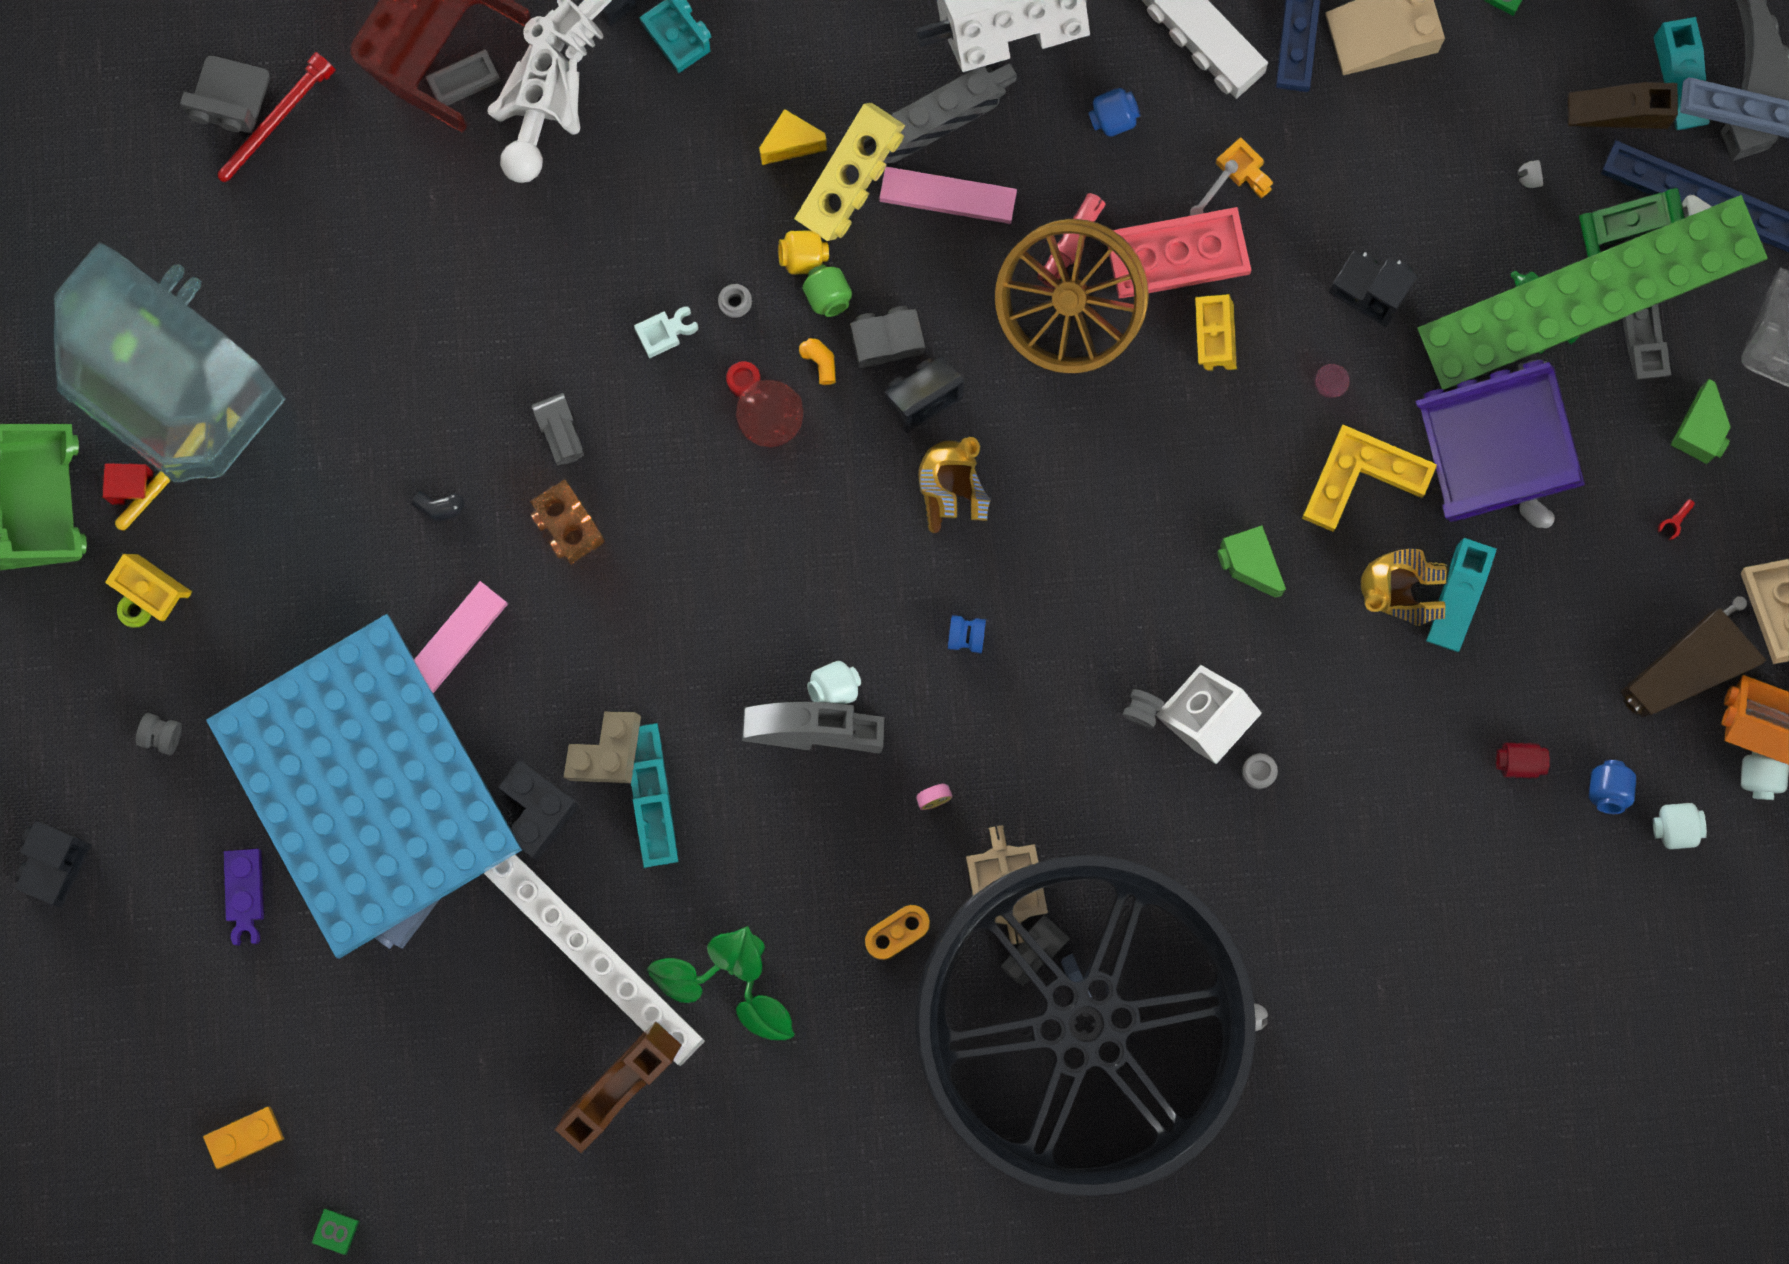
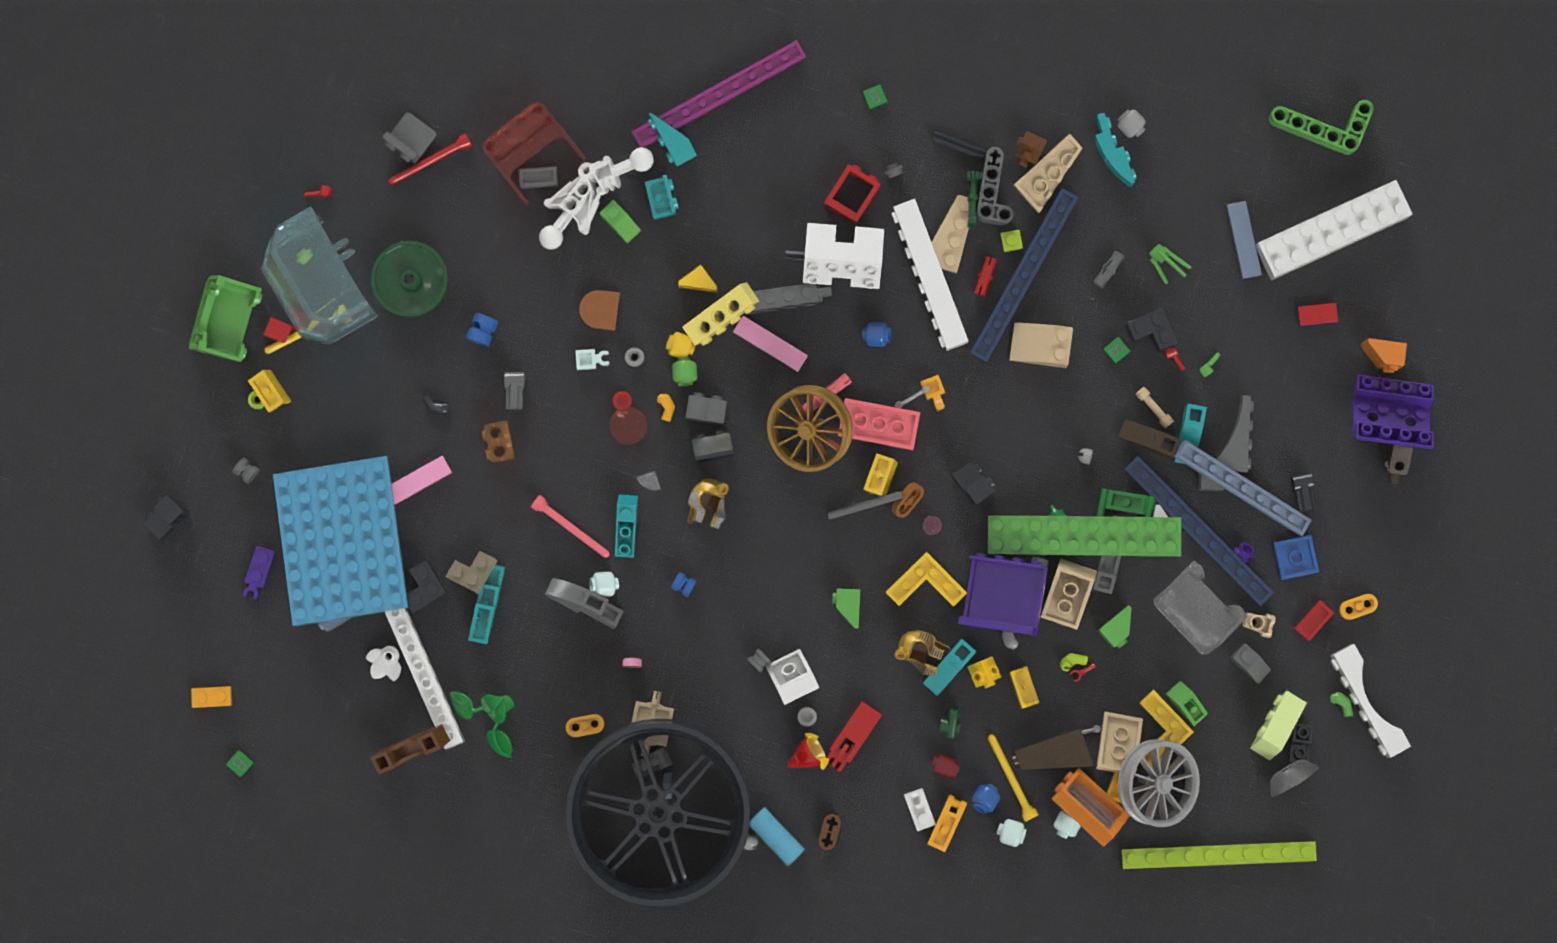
camera: 20 degrees right, 5 degrees up
(119, 235) = (325, 192): none -> red hand
(313, 315) = (409, 279): none -> dark green dish
(466, 350) = (482, 329): none -> blue wheel
(517, 967) = (383, 665): none -> white plate
(623, 94) = (619, 221): none -> bright green slope
(648, 247) = (600, 309): none -> dark orange tile
(675, 597) = (541, 505): none -> coral piece
(832, 576) = (626, 525): none -> teal slope
(841, 490) = (649, 481): none -> clear tile
(1211, 388) = (865, 505): none -> dark grey bar
(1276, 354) = (911, 496): none -> dark orange plate
(1284, 986) = (776, 836): none -> medium azure piece
(1290, 831) = (809, 754): none -> hat
(1353, 759) = (855, 730): none -> red hinge
(1386, 946) = (834, 833): none -> reddish brown beam
(1502, 691) = (950, 725): none -> dark green plate
(1510, 850) = (919, 809): none -> white plate
(1522, 581) = (984, 672): none -> yellow brick
(1566, 855) = (946, 824): none -> light orange plate
(1593, 583) = (1023, 687): none -> yellow hinge
(1602, 401) = (1069, 594): none -> tan slope
(1632, 70) = (1165, 420): none -> tan bar
(1651, 507) = (1072, 659): none -> lime arm
(1689, 780) = (1028, 811): none -> yellow piece

